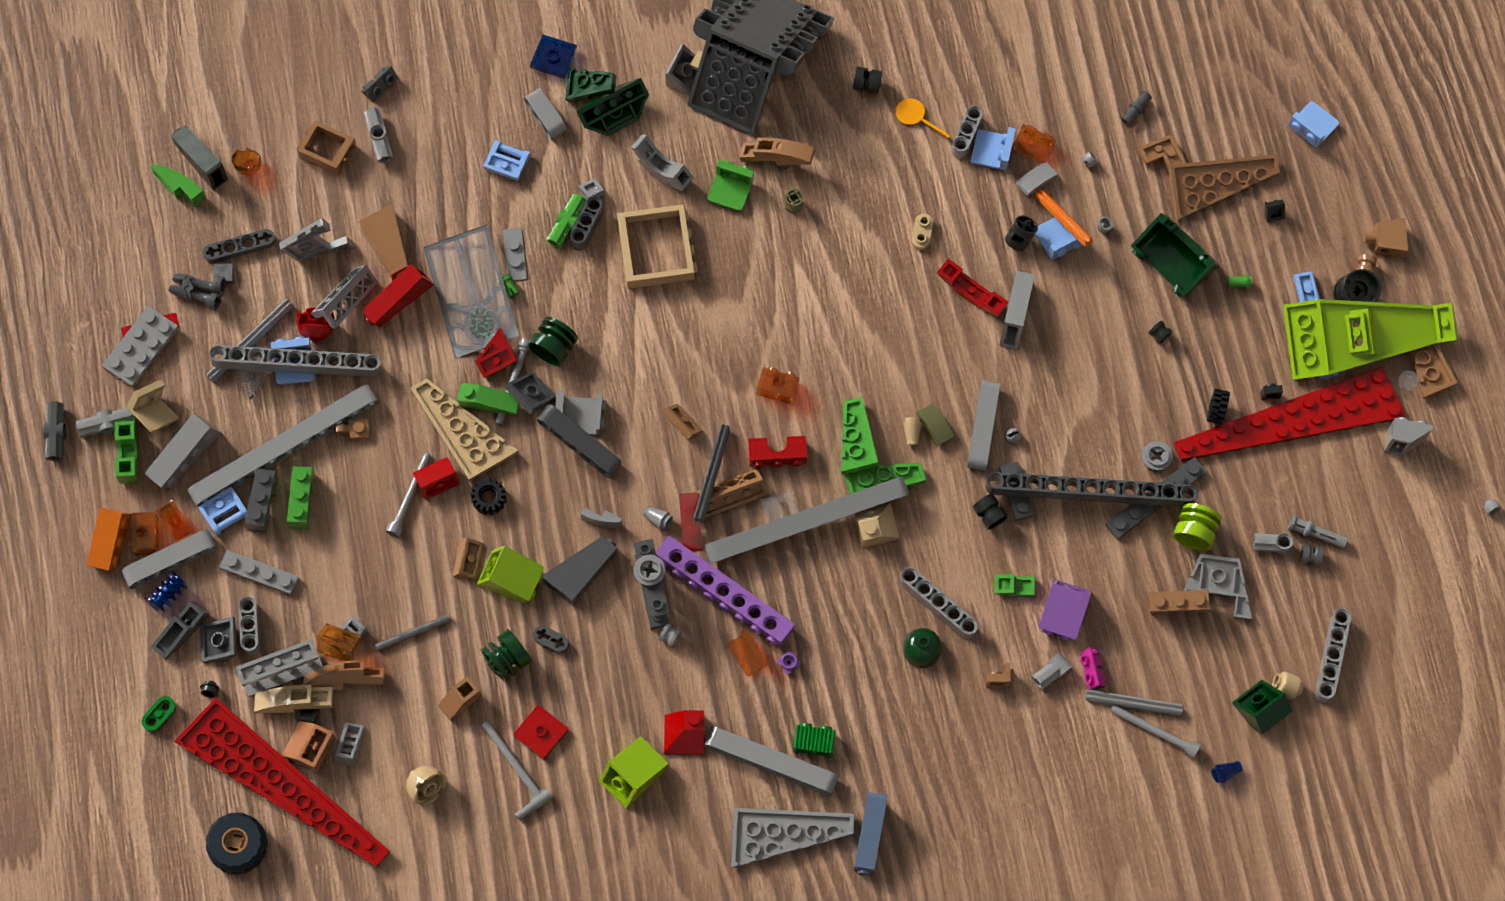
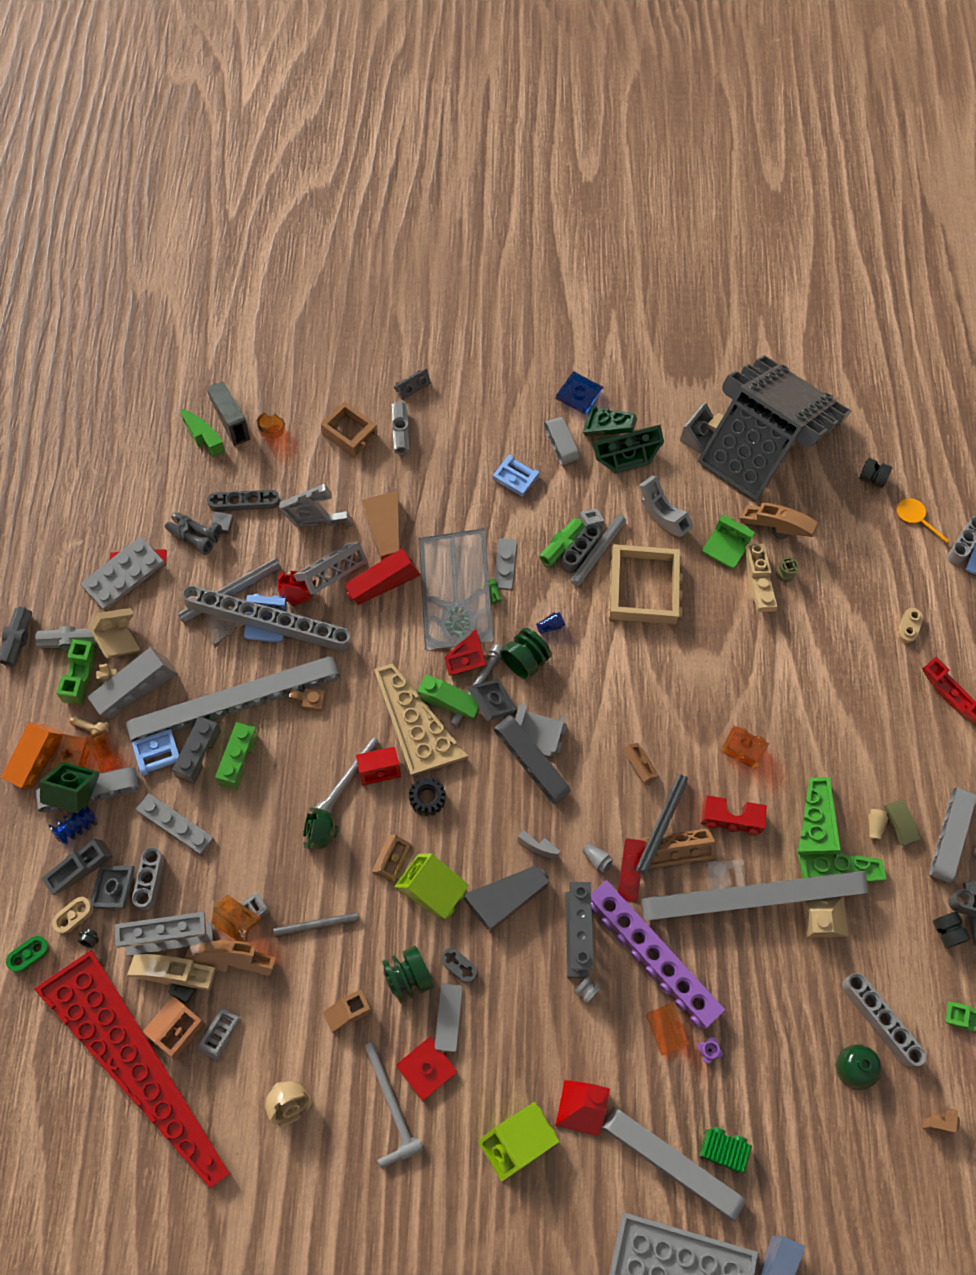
camera: 10 degrees right, 5 degrees down
(154, 559) = (68, 787): none -> dark green slope
(155, 448) = (105, 673): none -> tan plate
(158, 502) = (75, 721): none -> tan piece
(188, 671) = (73, 914): none -> tan plate
(236, 843) = (64, 1124): black wheel -> none
(395, 547) = (319, 829): none -> dark green cylinder
(551, 685) = (448, 1017): none -> light grey piece
(571, 305) = (551, 623): none -> clear blue cone
(604, 220) = (598, 550): none -> light grey axle
(644, 563) = (590, 913): light grey gear -> none
(767, 215) = (759, 578): none -> tan slope

